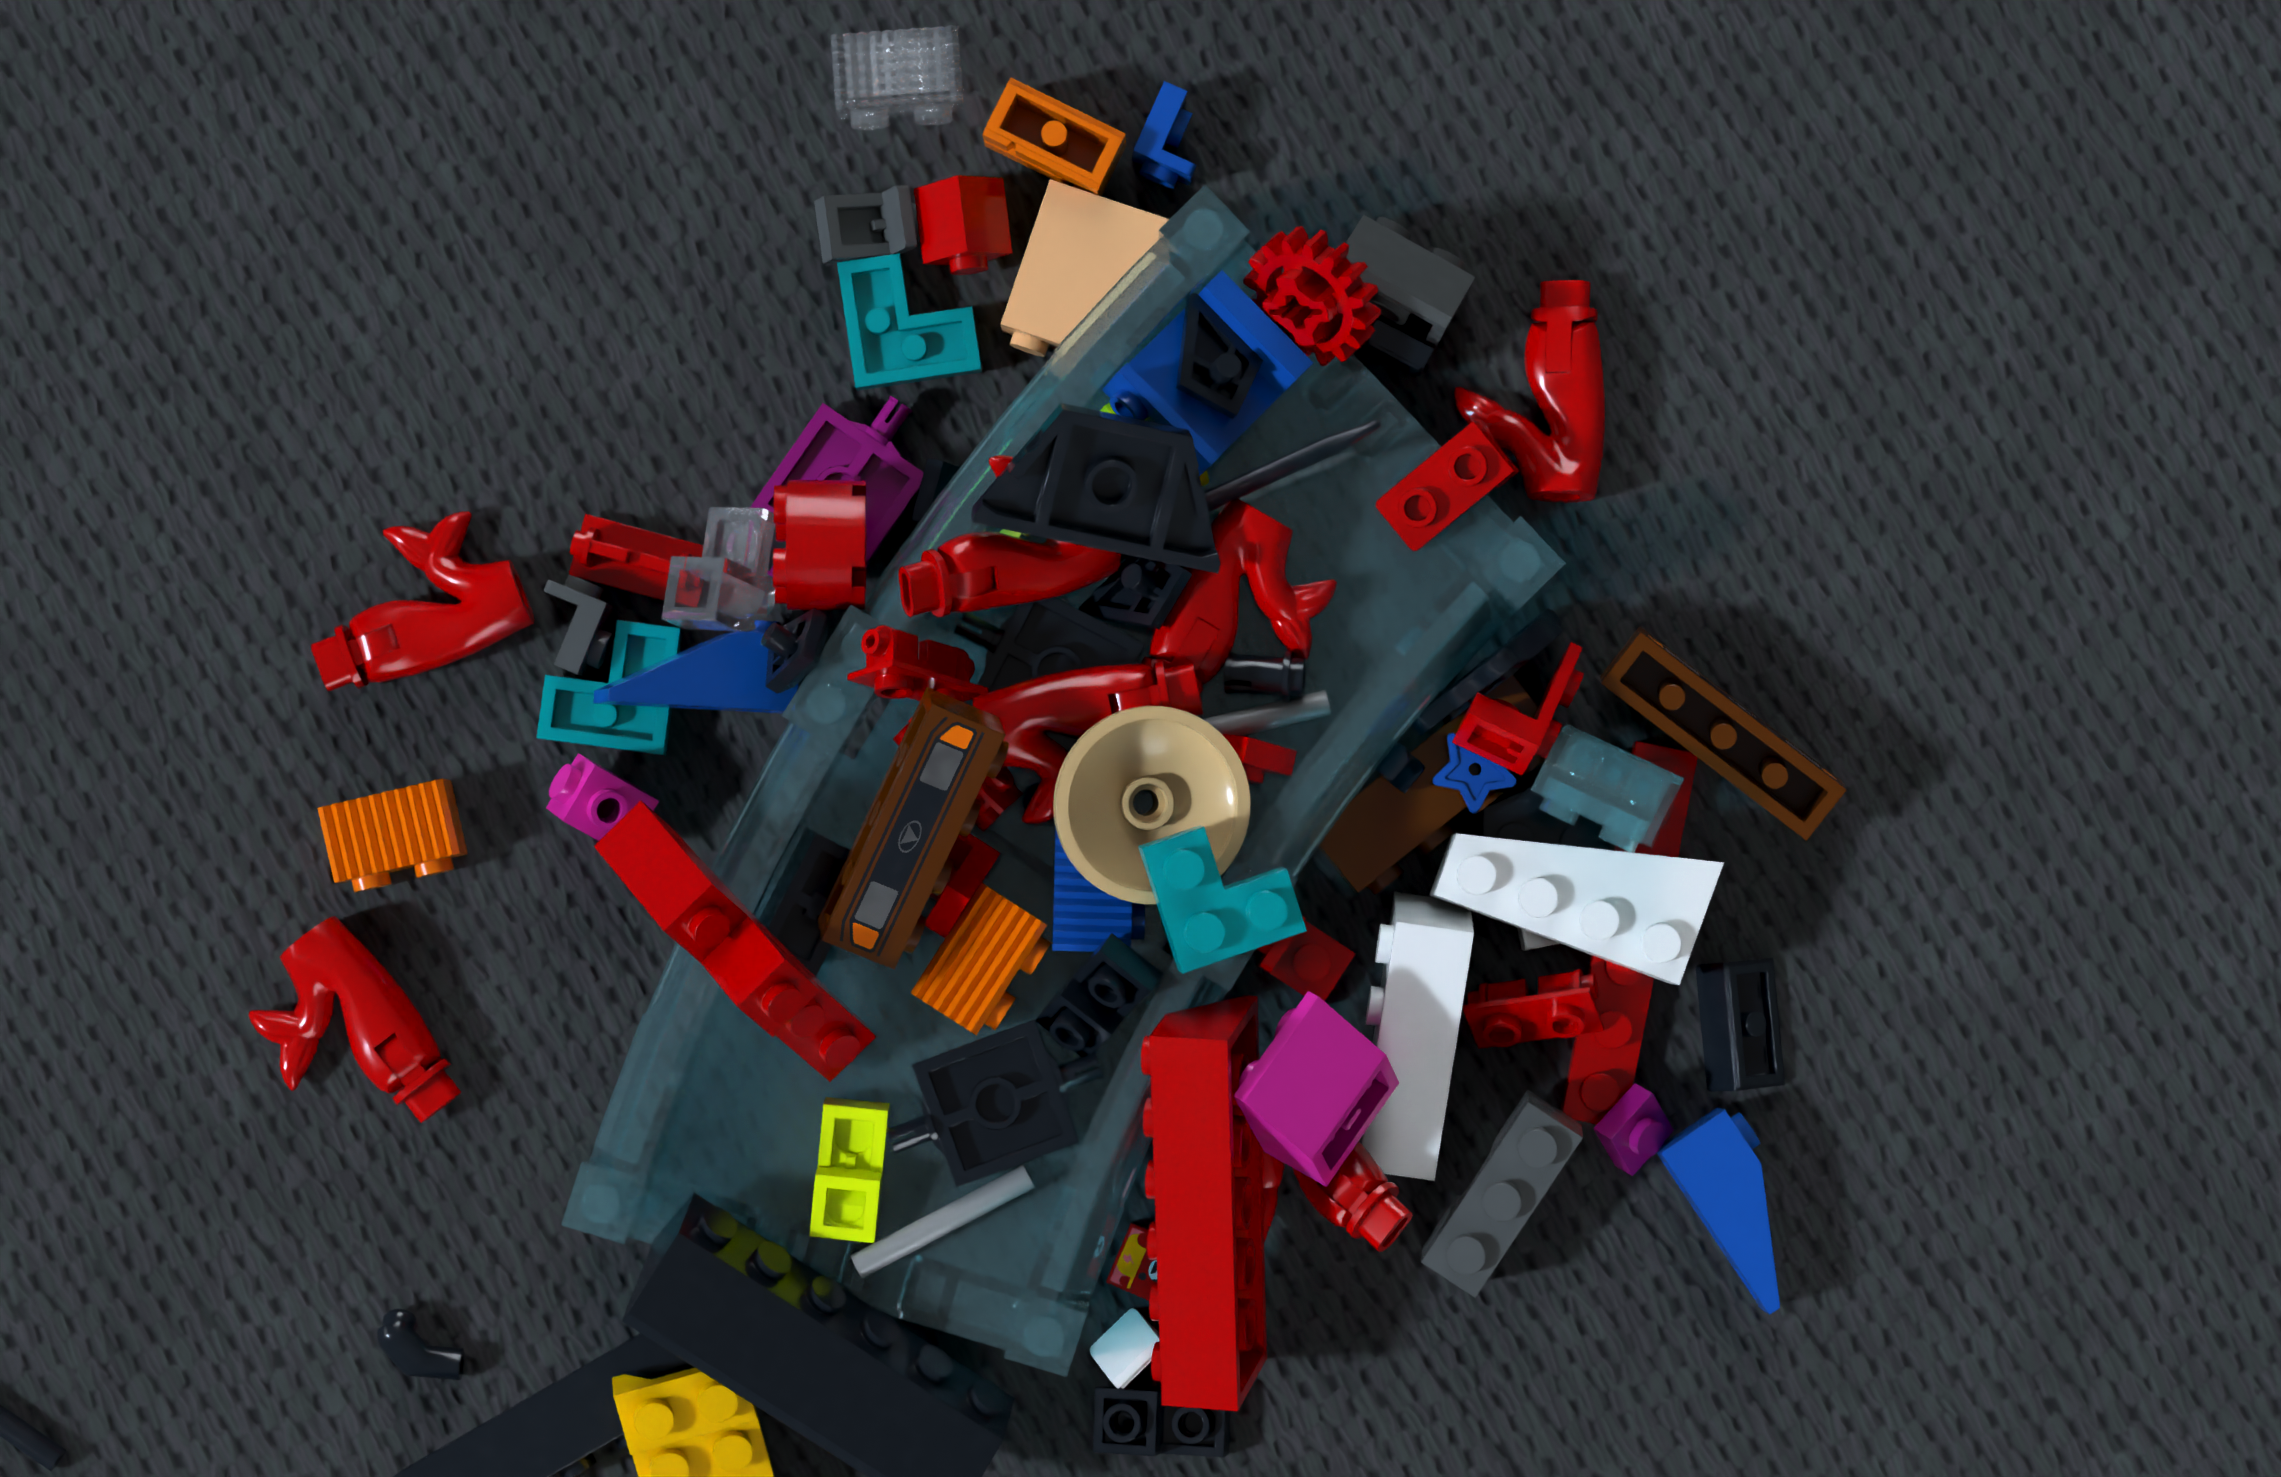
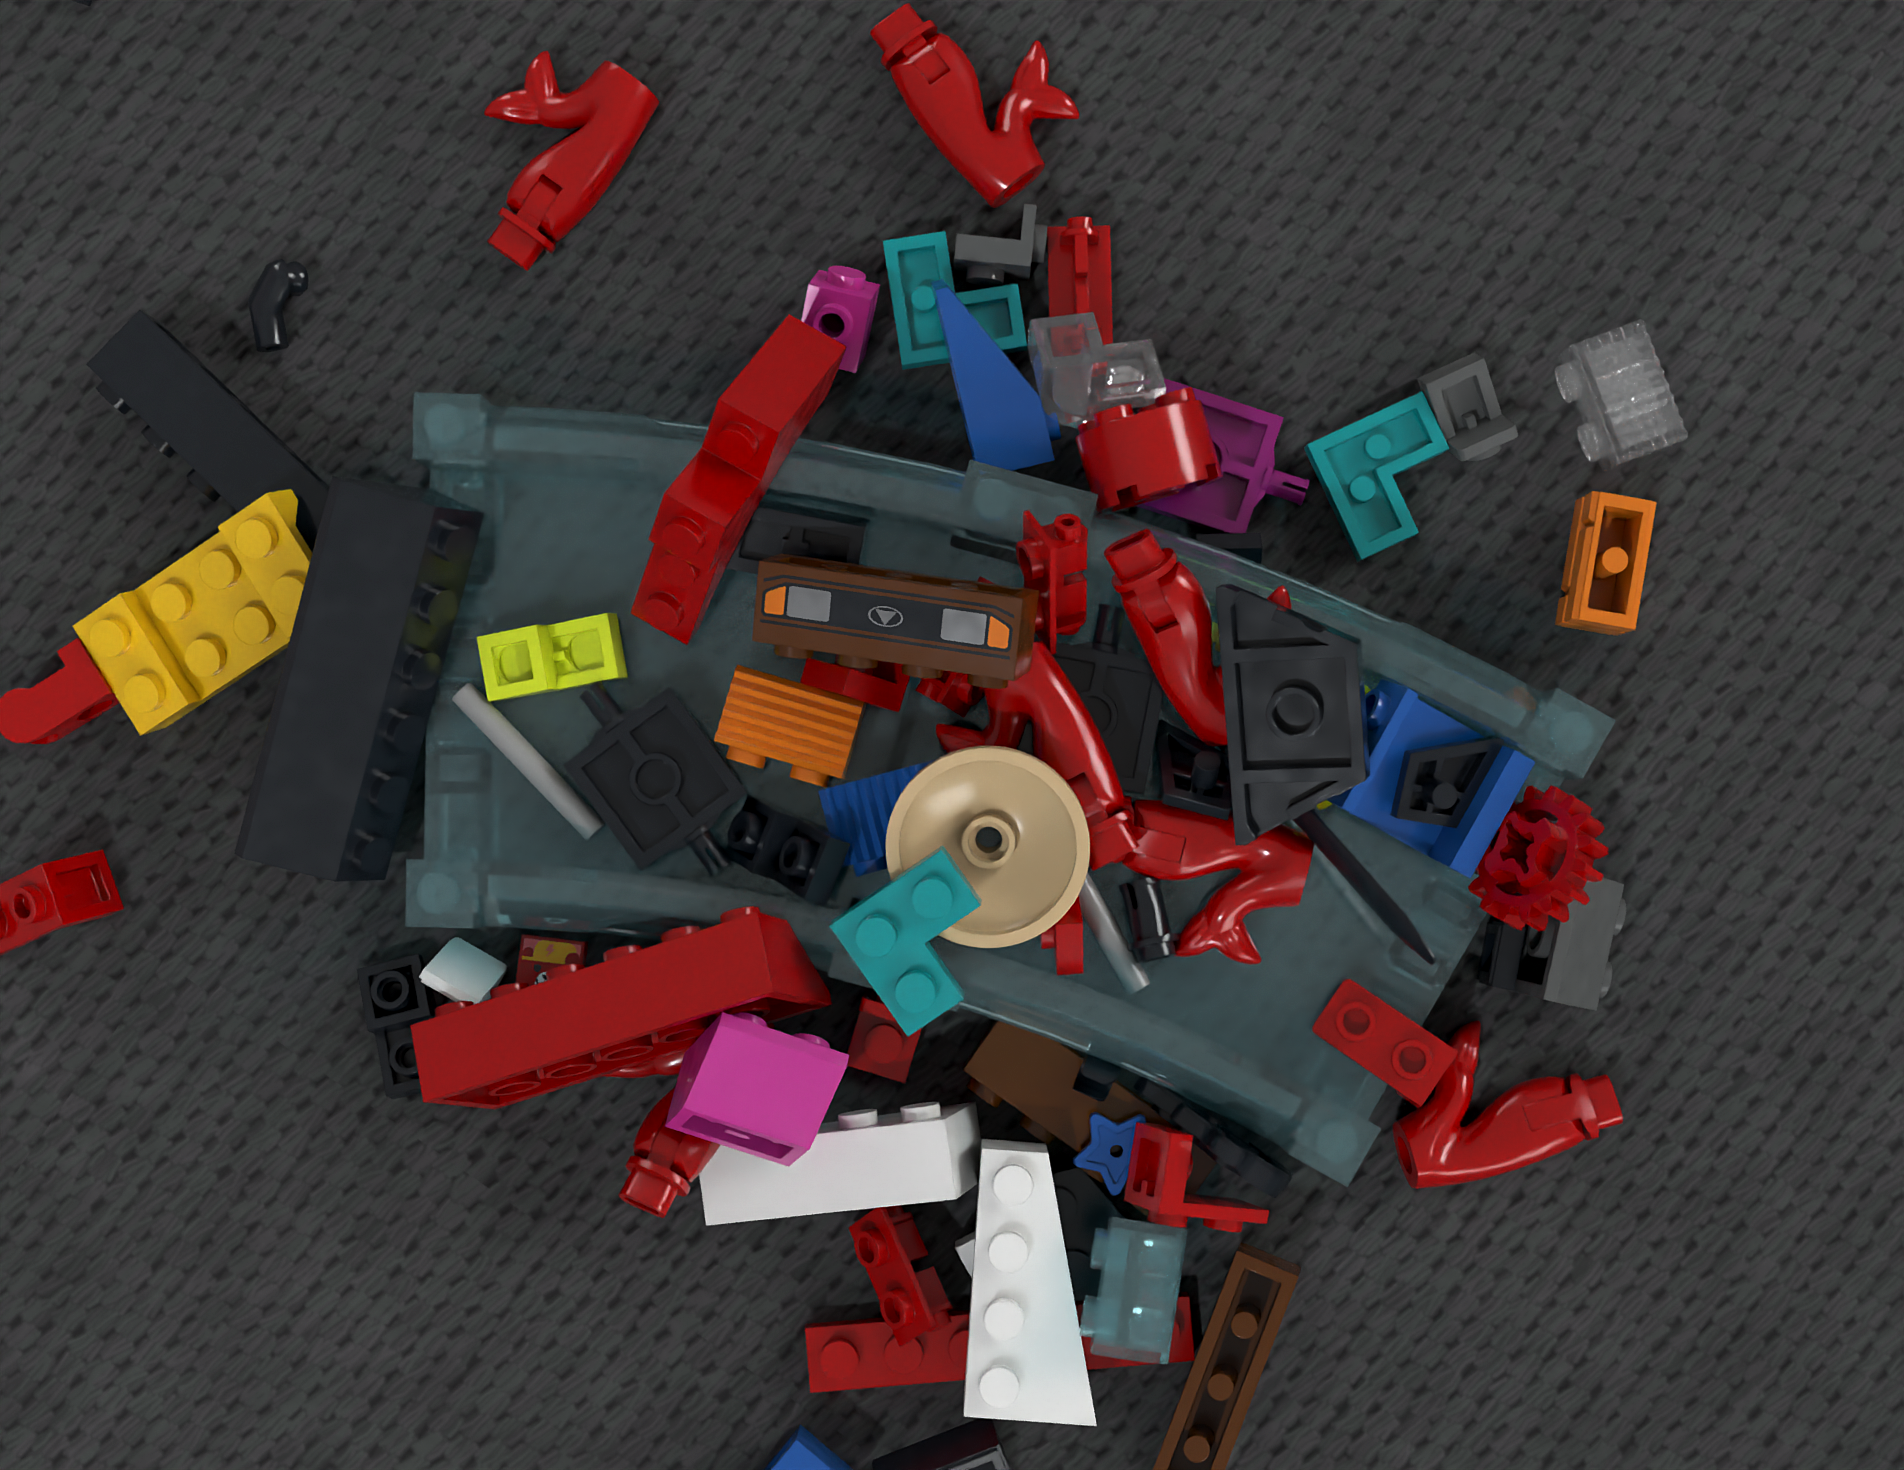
camera: 80 degrees right, 0 degrees up
(392, 833) = (754, 133): orange brick -> none
(794, 649) = (1038, 453): black piece -> none
(963, 222) = (1498, 500): red brick -> none
(1071, 262) = (1491, 613): light nougat slope -> none
(1165, 126) = (1649, 669): blue bracket -> none
(1502, 1194) = (730, 1304): dark grey arch -> none
(1633, 1129) = (812, 1403): magenta plate -> none

